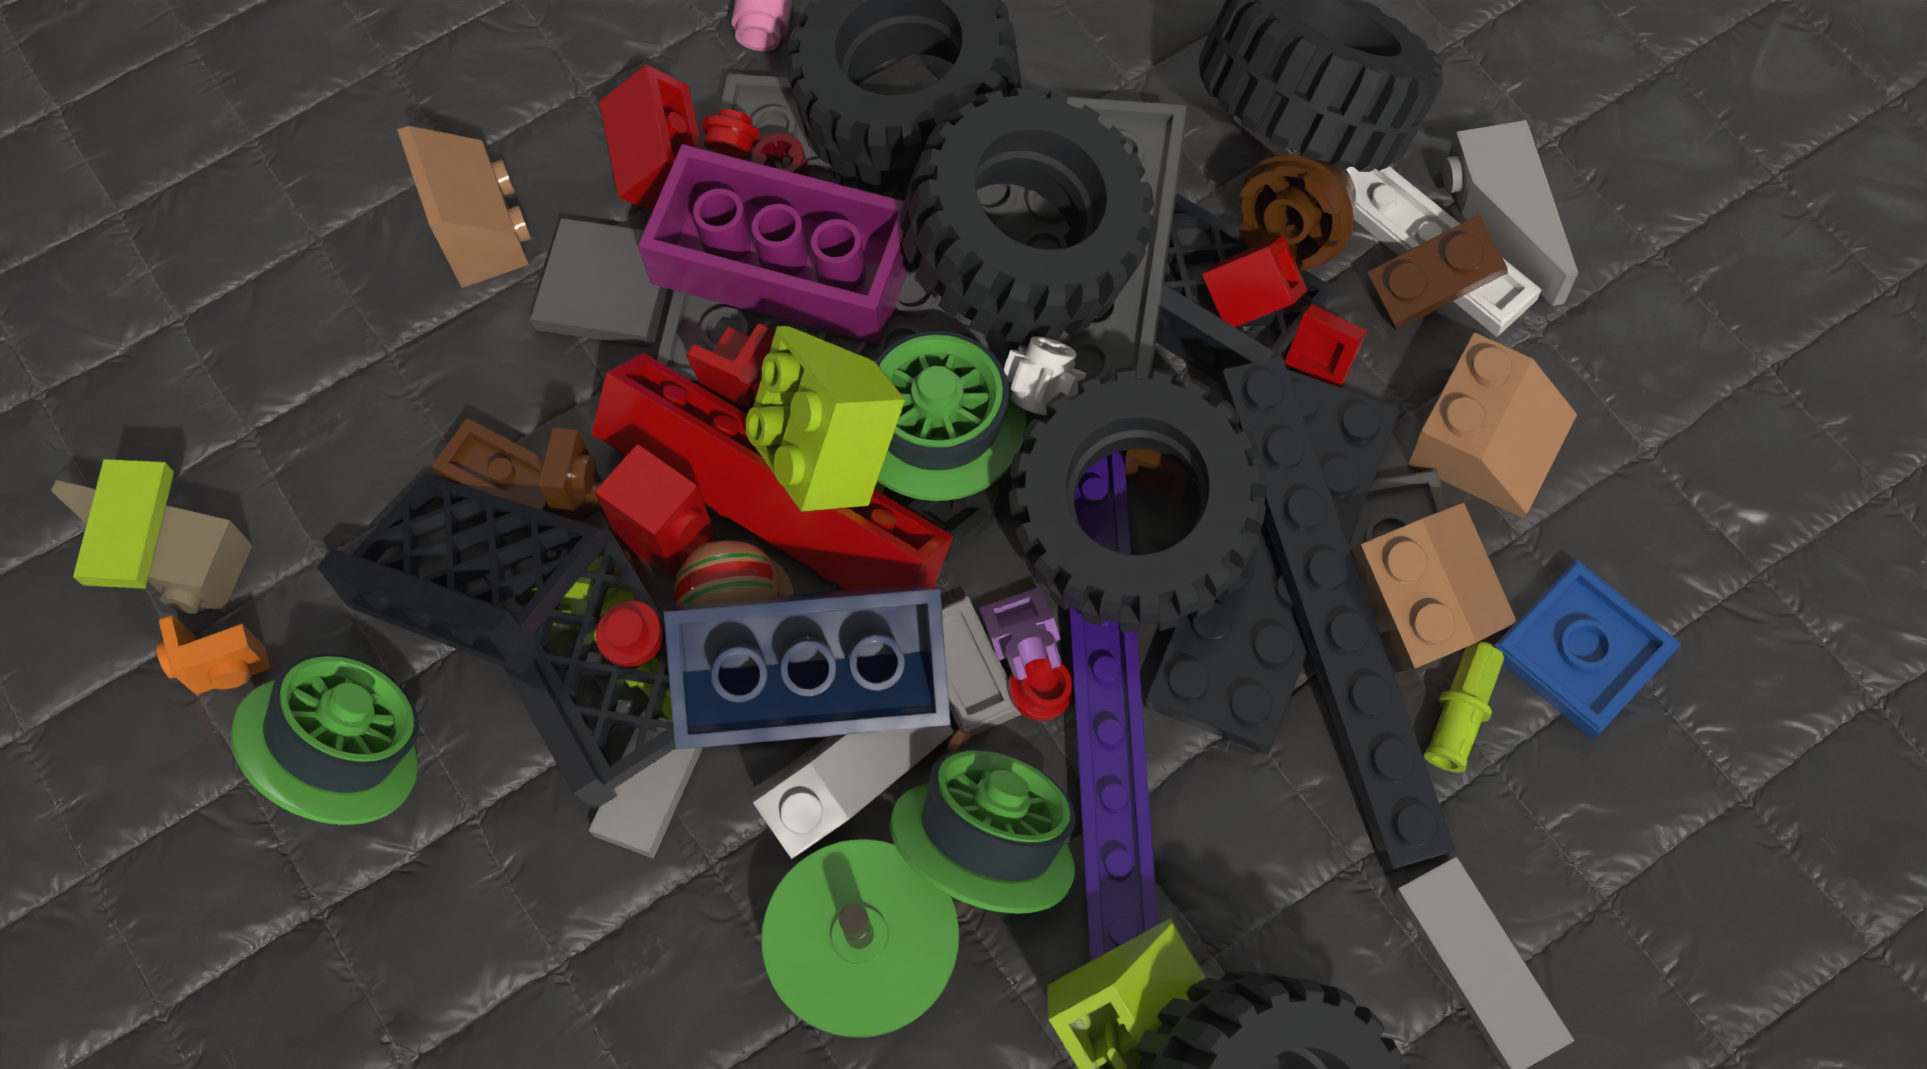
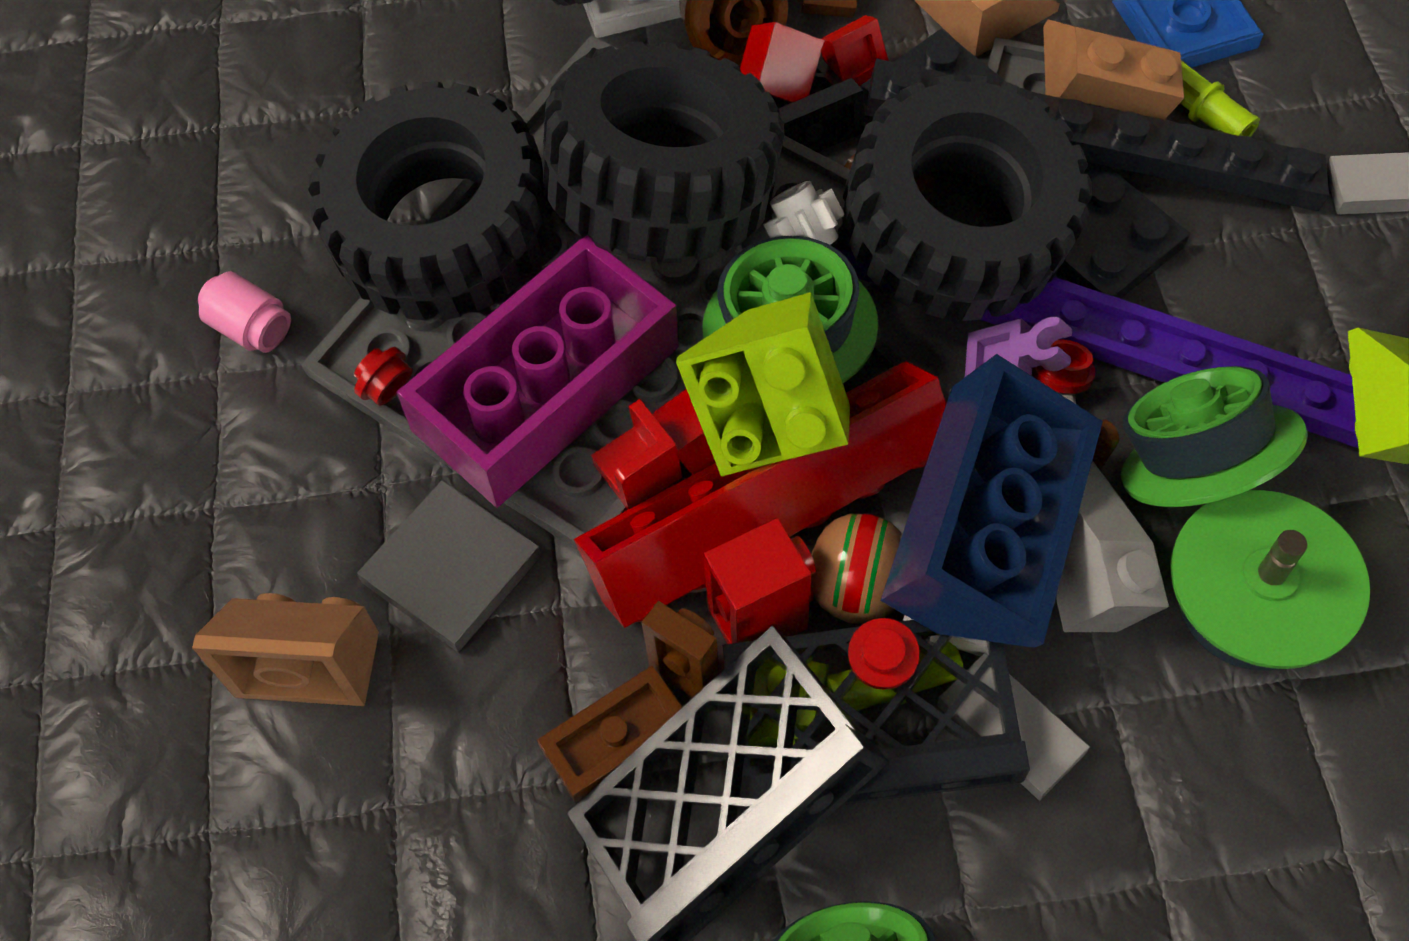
camera: 65 degrees left, 5 degrees down
(644, 130) = (333, 452): red brick -> none
(778, 147) = (427, 336): dark red bush -> none

